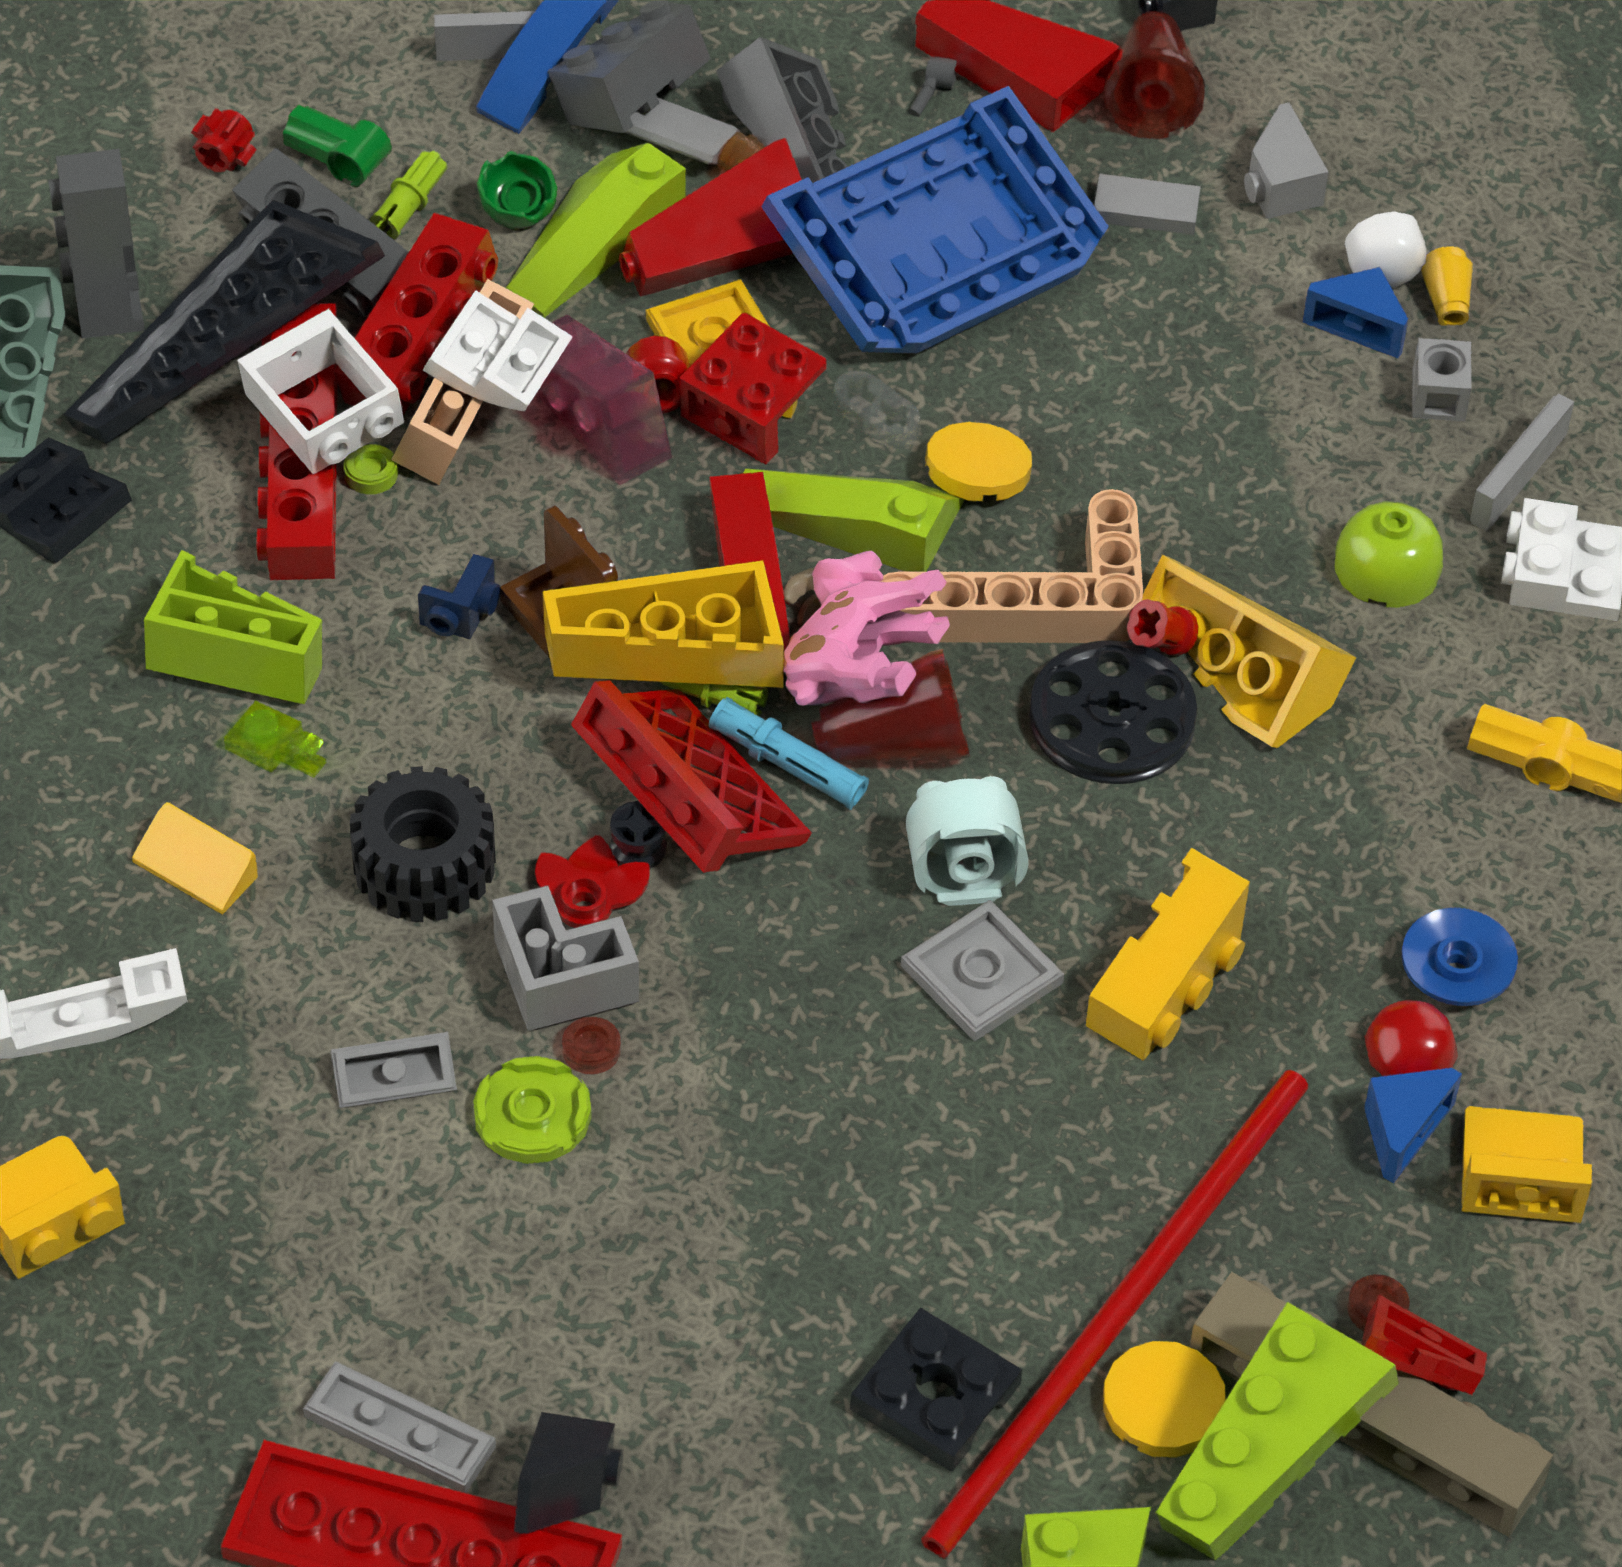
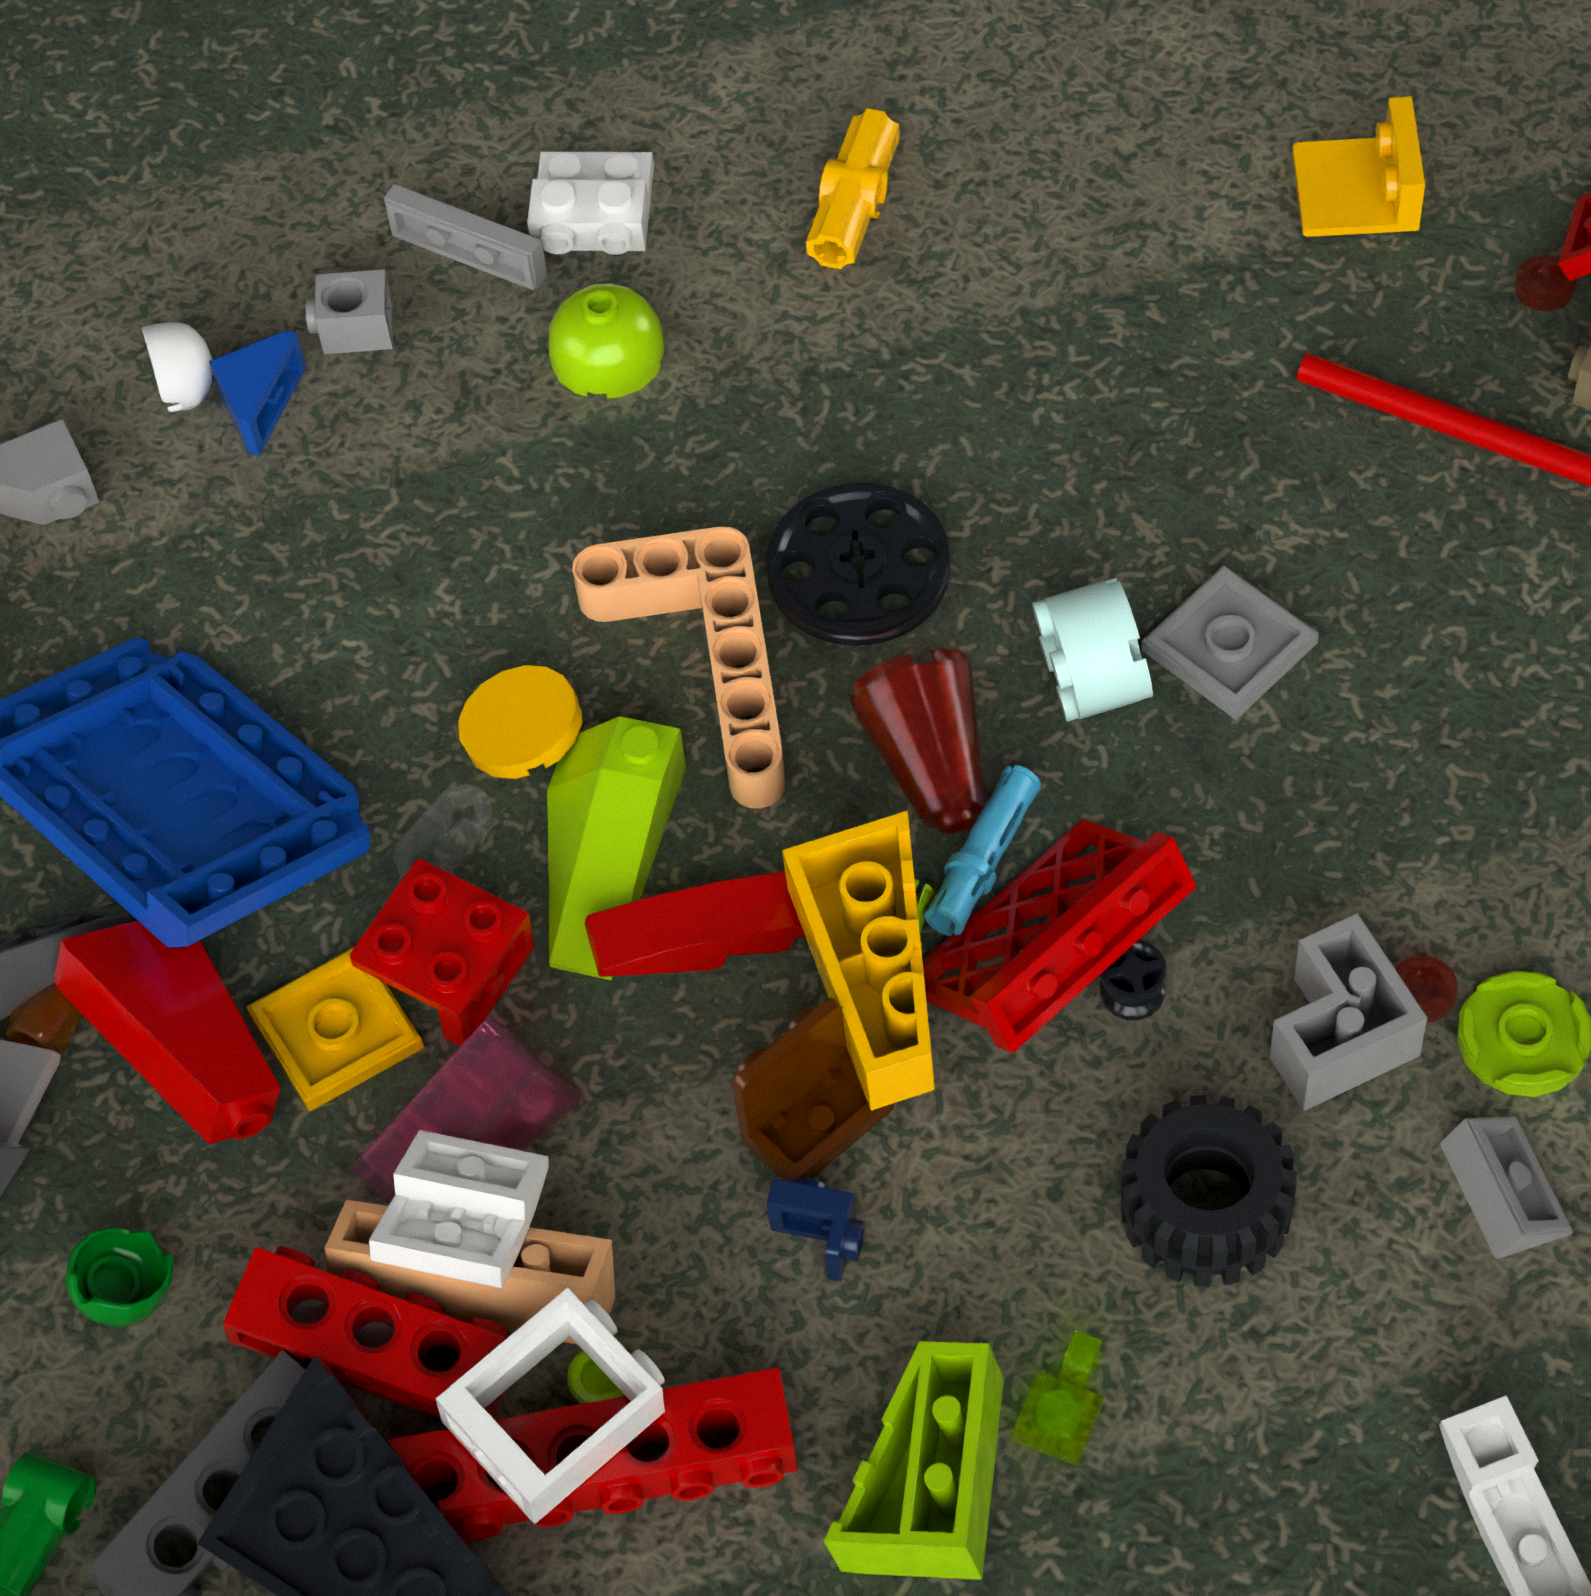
camera: 90 degrees left, 5 degrees up
(196, 858) = (1268, 1457): yellow slope -> none
(409, 193) = (119, 1416): lime axle -> none
(592, 877) = (1193, 1021): red plate -> none
(595, 223) = (136, 1166): lime wedge -> none
(667, 362) = (413, 1058): red head -> none
(849, 623) = (828, 776): bright pink animal -> none
(1147, 203) = (88, 608): light grey tile -> none
(1156, 625) = (764, 526): red bush -> none
(1173, 960) = (1201, 460): yellow wedge -> none
(1258, 661) = (770, 437): yellow wedge -> none
(1406, 1112) = (1337, 267): blue slope -> none
(1410, 1039) = (1237, 277): red hair -> none
(1448, 282) = (213, 316): yellow cone -> none
(1461, 938) = (1130, 225): blue dish -> none

